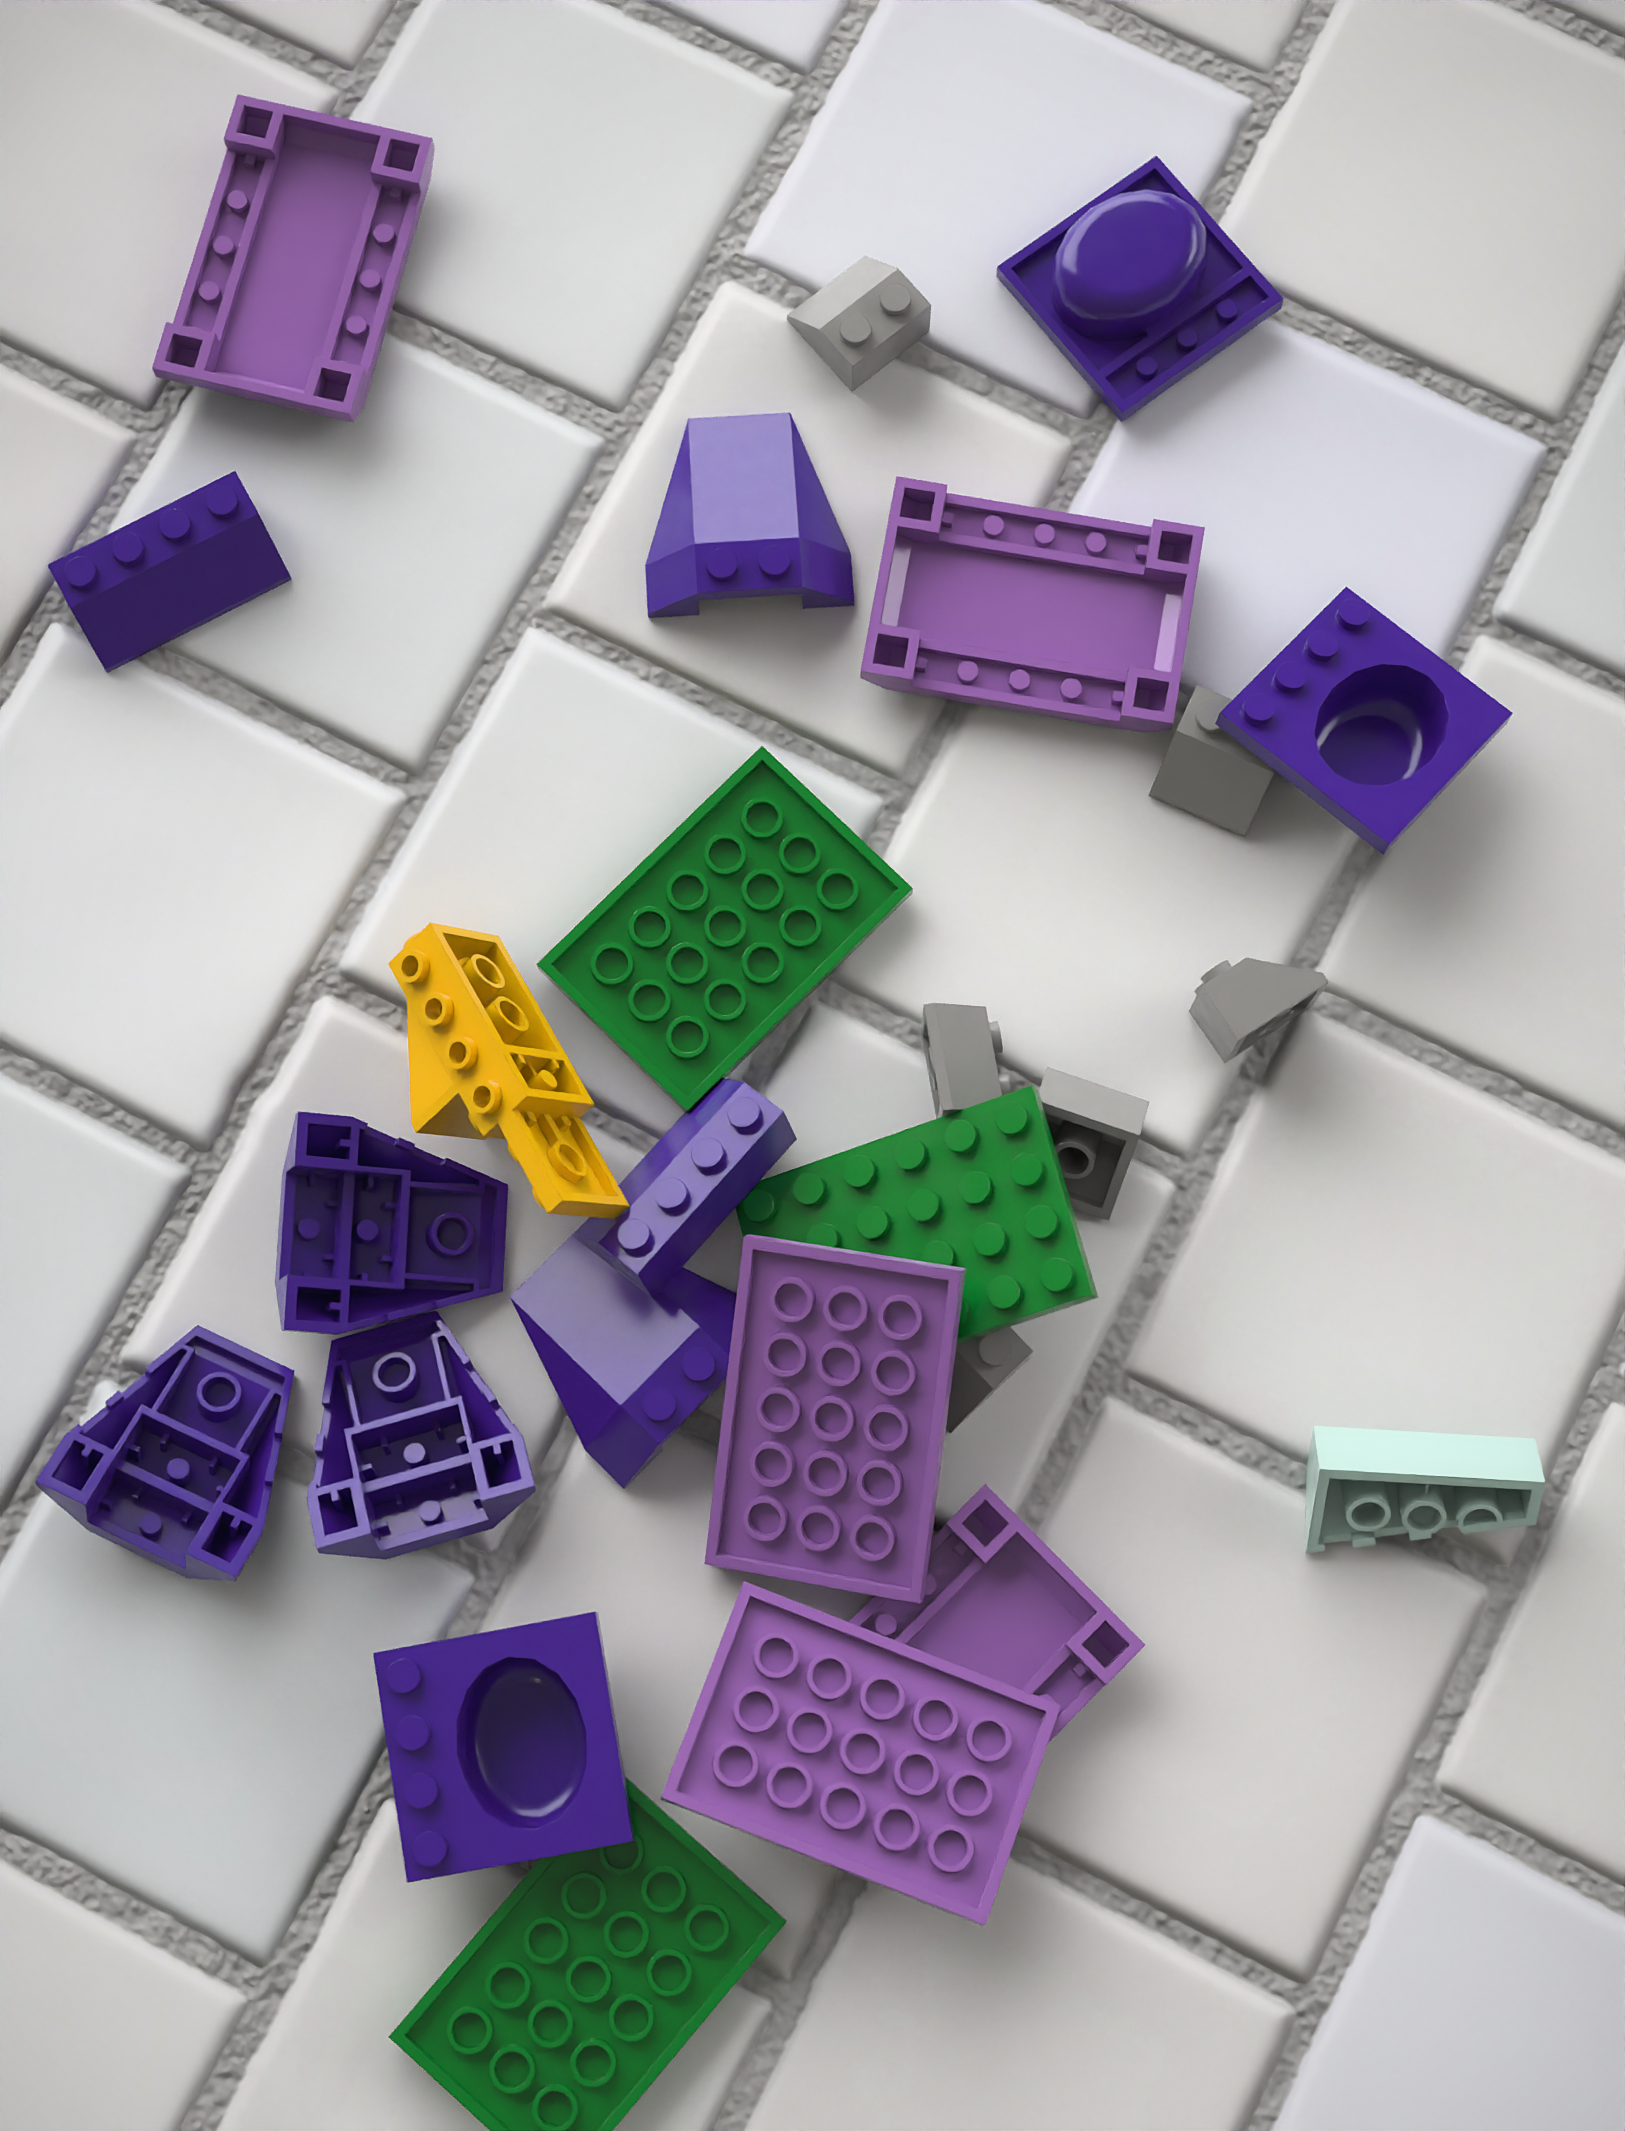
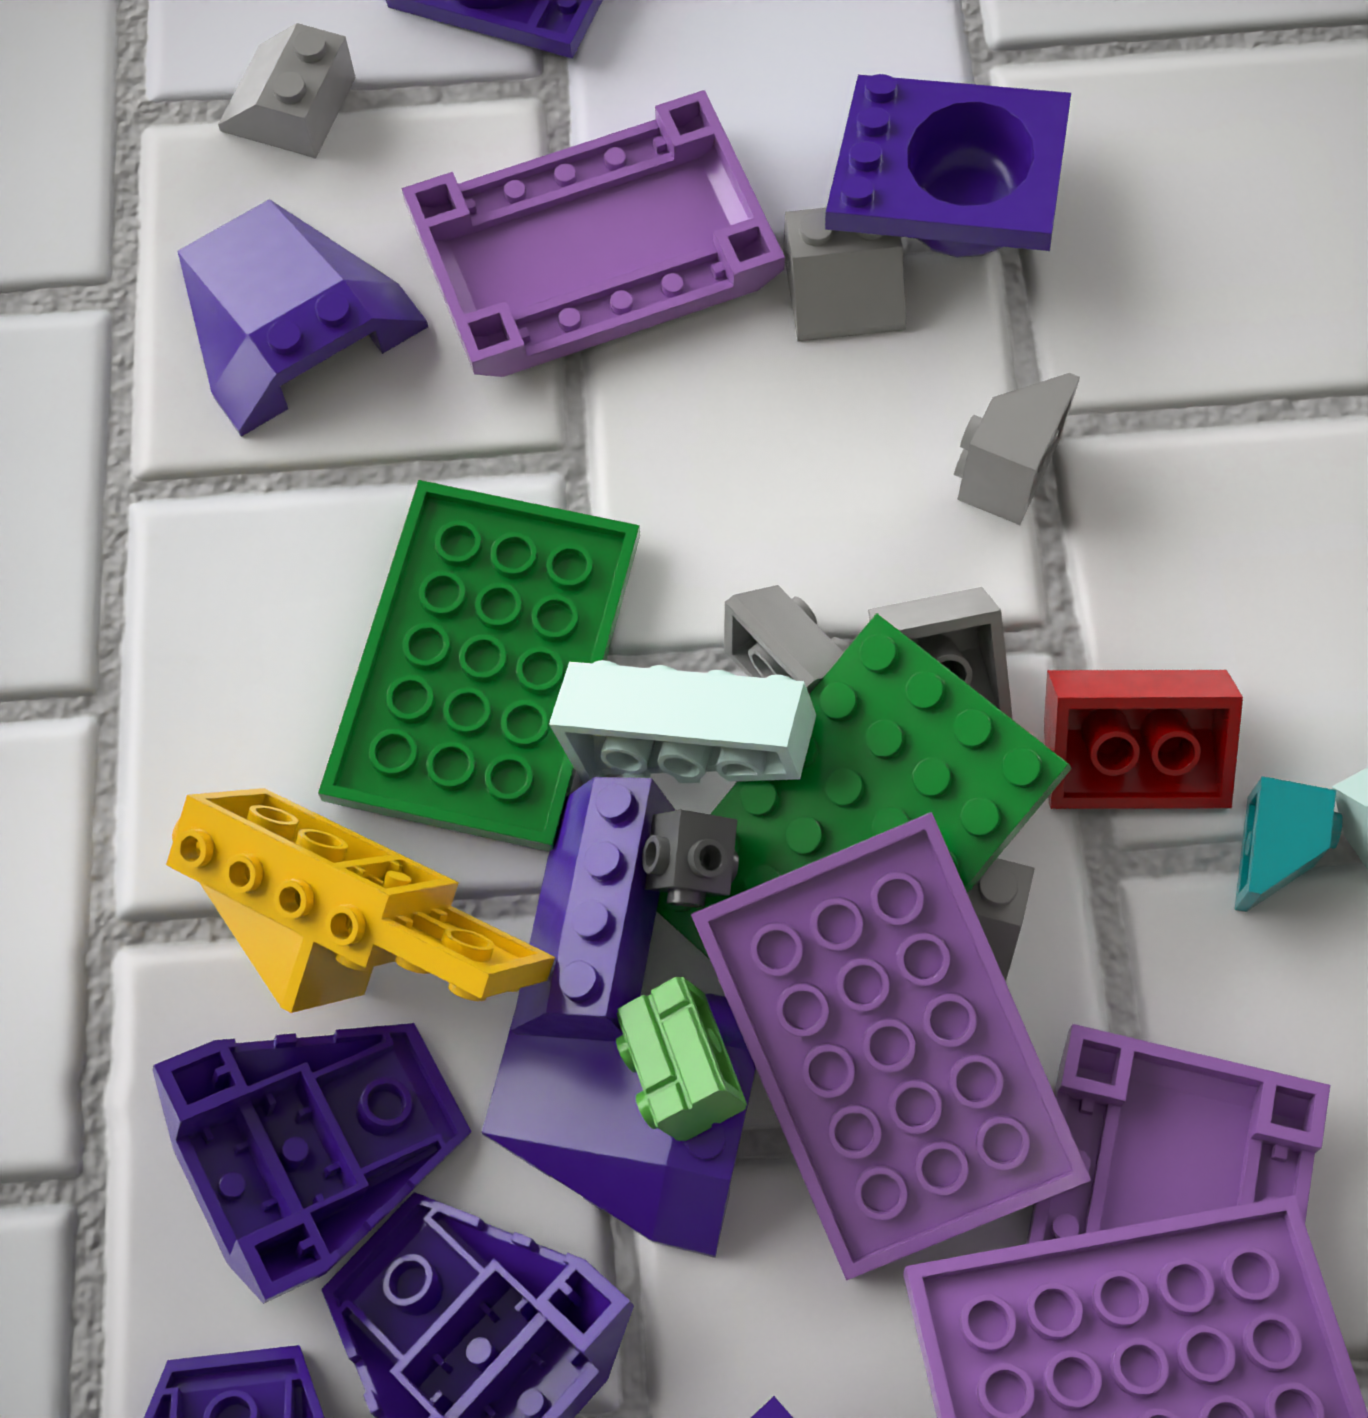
camera: 30 degrees left, 10 degrees down
(672, 1336) = (678, 1060): none -> bright green brick
(775, 1189) = (690, 856): none -> dark grey brick
(833, 1080) = (681, 723): none -> light aqua wedge
(1194, 1297) = (1143, 738): none -> red slope
(1251, 1442) = (1283, 836): none -> teal slope

